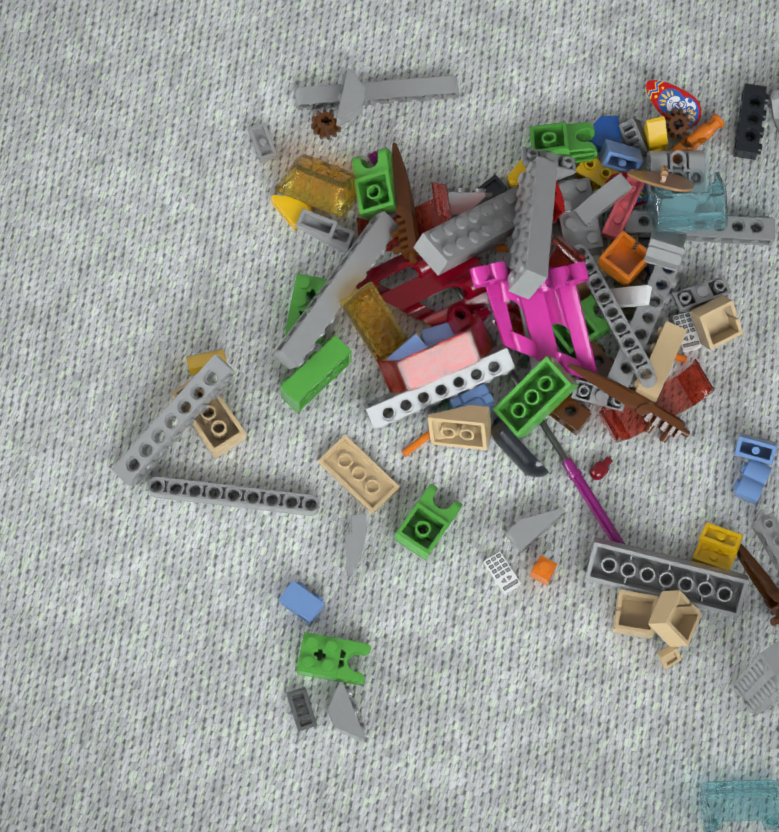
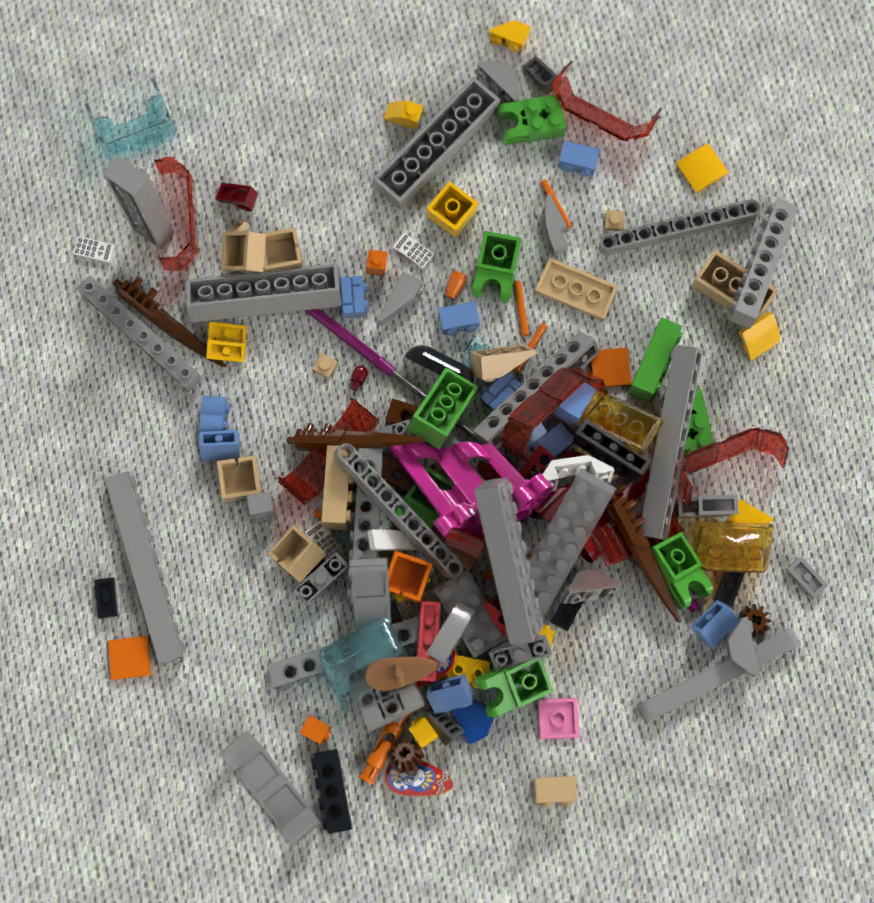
camera: 160 degrees right, 5 degrees up
(182, 548) = (702, 167): none -> yellow slope
(237, 255) = (753, 438): none -> clear red windscreen
(261, 633) = (596, 115): none -> clear red windscreen
(292, 529) = (614, 220): none -> tan plate
(315, 761) = (510, 34): none -> yellow slope
(339, 155) = (728, 587): none -> black plate
(342, 567) = (548, 190): none -> orange bar
(356, 389) = (612, 367): none -> orange tile
(363, 132) = (715, 624): none -> medium blue brick
(395, 300) = (611, 451): none -> black brick
(417, 287) = (571, 466): none -> white slope
(419, 477) = (521, 308): none -> orange bar
(438, 669) = (436, 143): none -> light grey brick
(449, 594) = (452, 209): none -> yellow brick
(459, 716) = (404, 114): none -> yellow slope
(473, 523) = (455, 284): none -> orange cone
(478, 455) = (474, 345): none -> clear light blue plate
(484, 487) = (459, 318): none -> medium blue brick
(531, 109) = (558, 718): none -> bright pink tile
(559, 51) = (555, 790): none -> tan piece
(579, 546) = (352, 297): none -> medium blue brick
(628, 492) = (325, 365): none -> tan plate
(657, 690) = (239, 195): none -> dark red plate
(706, 732) = (170, 165): none -> clear red windscreen
(735, 376) = (260, 507): none -> light grey brick
(746, 410) = (239, 481): none -> tan piece
(748, 174) = (316, 730): none -> orange brick

